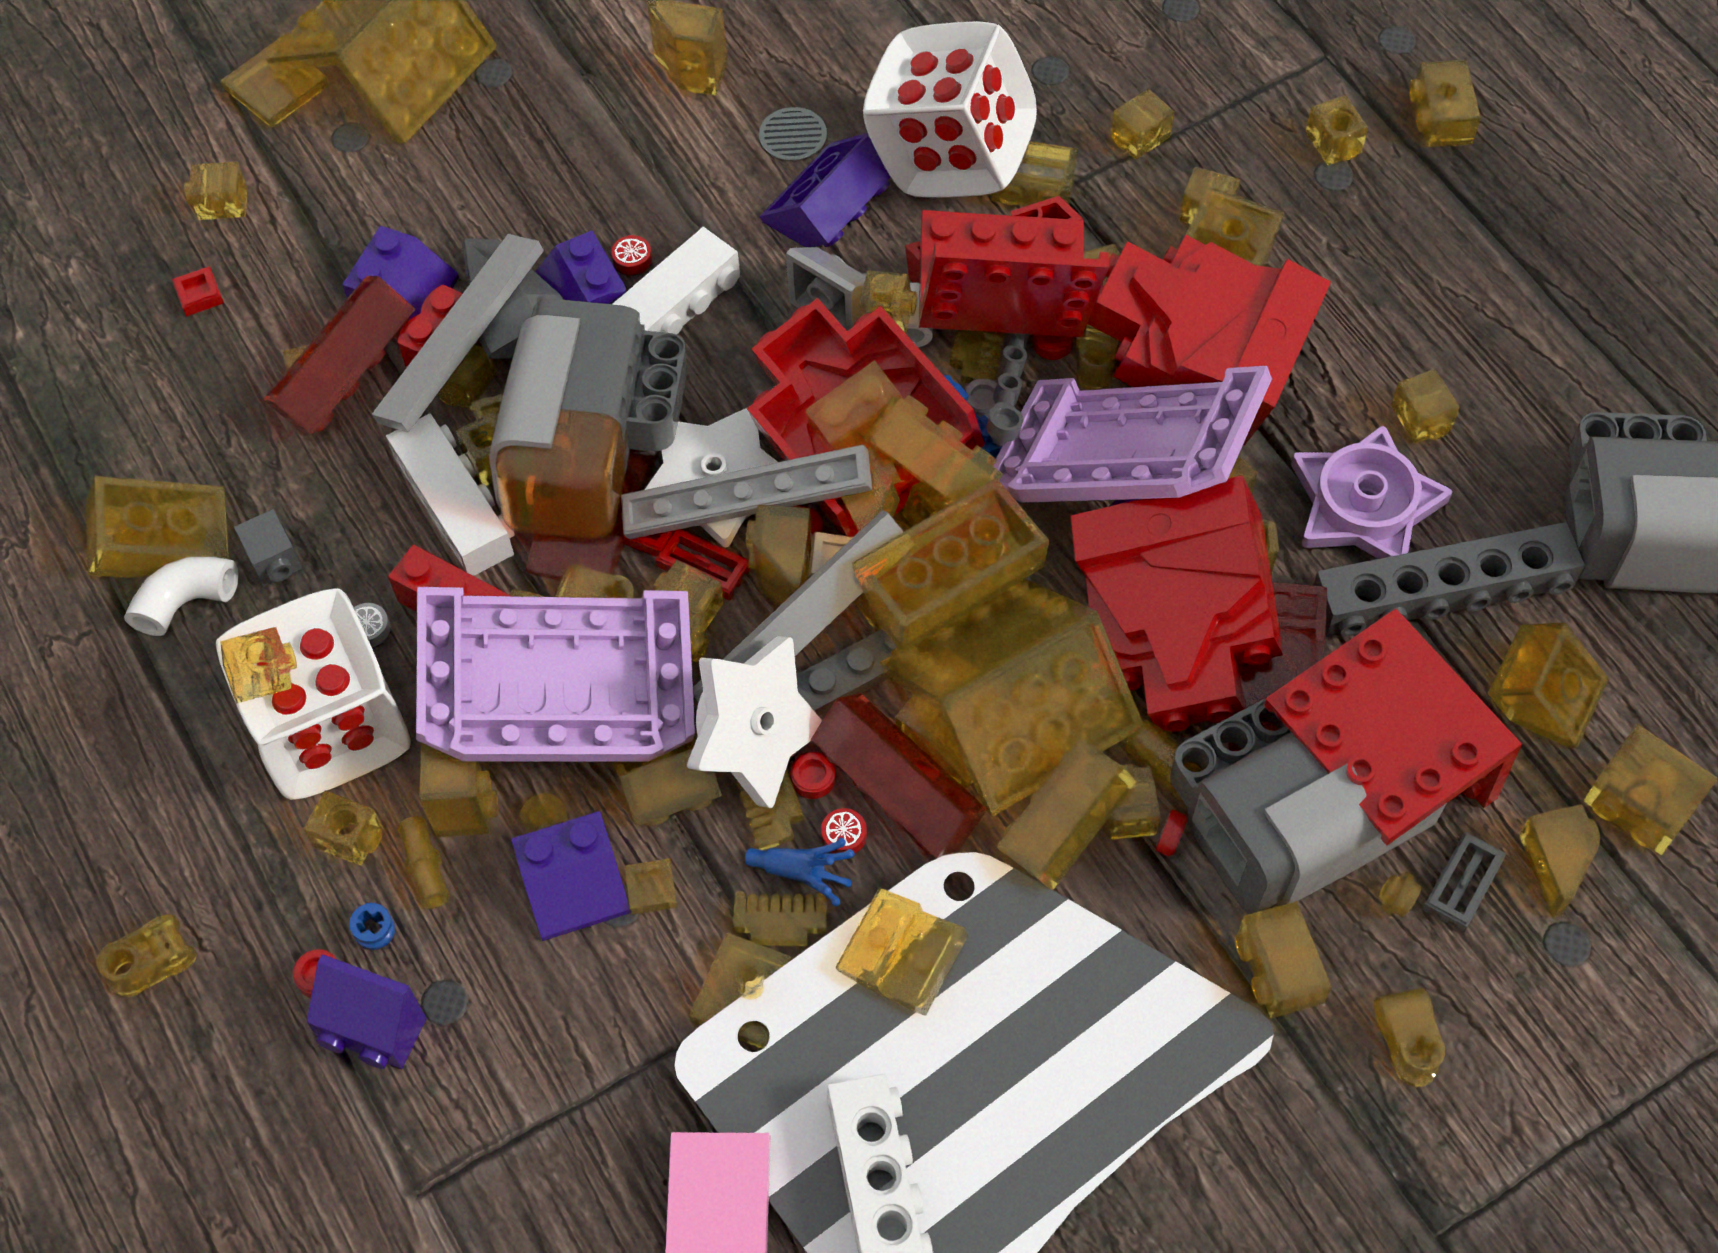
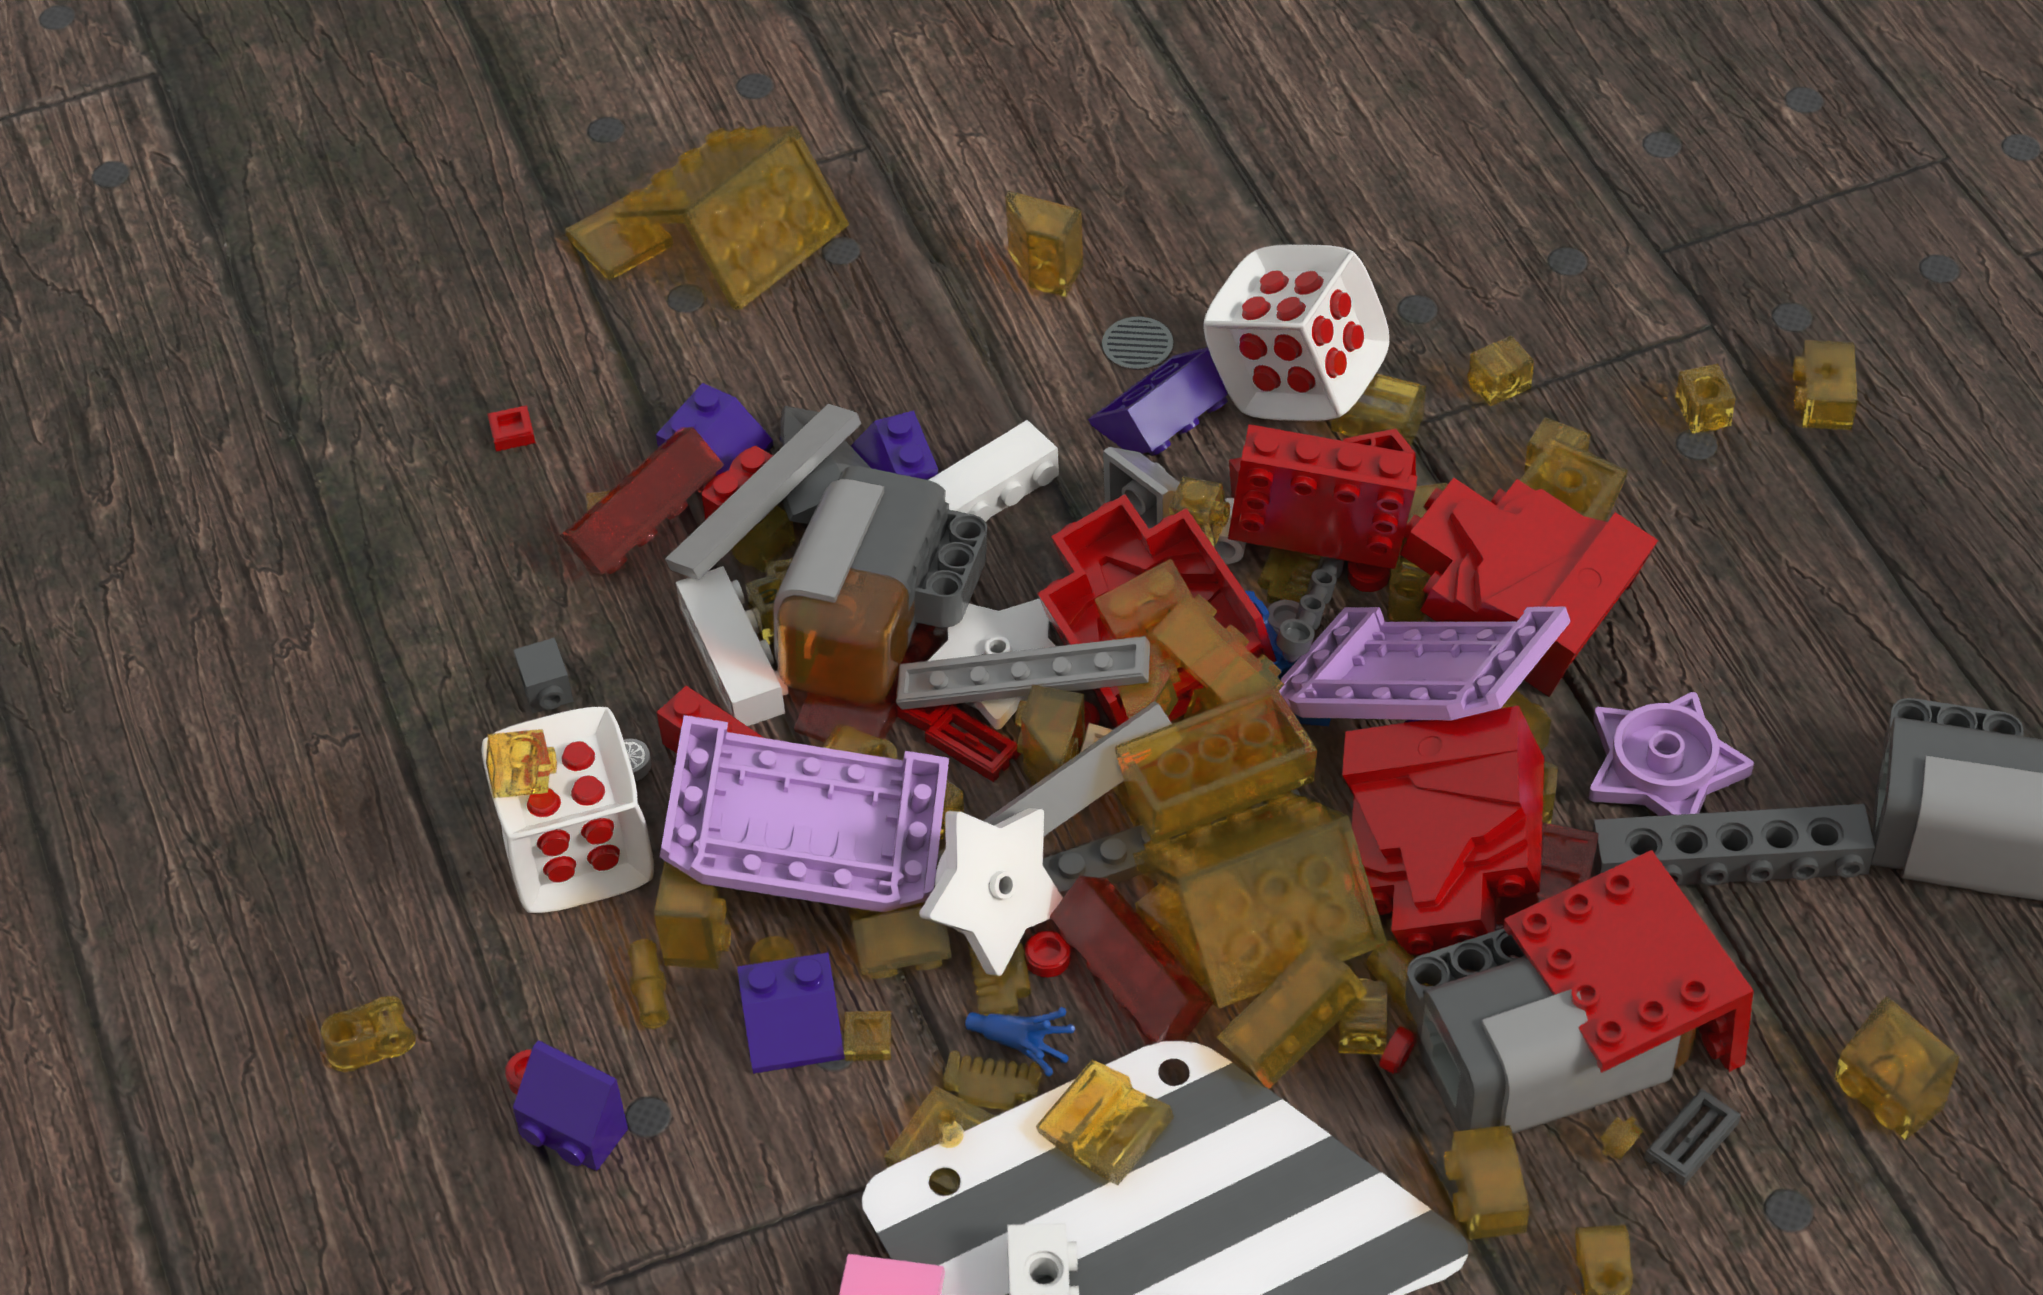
camera: 10 degrees right, 10 degrees down
(149, 523) = (434, 643): clear yellow slope -> none
(175, 585) = (448, 699): white cylinder -> none
(217, 190) = (545, 334): clear yellow brick -> none
(335, 813) = (565, 930): clear yellow brick -> none
(367, 938) = (597, 1027): blue bush -> none
(631, 255) = (951, 441): red tile -> none
(704, 592) = (965, 765): clear yellow brick -> none
(847, 825) = (1076, 1004): red tile -> none
(1425, 406) = (1743, 678): clear yellow brick -> none
(1549, 683) = (1818, 959): clear yellow slope -> none
(1560, 852) = (1796, 1119): clear yellow slope -> none

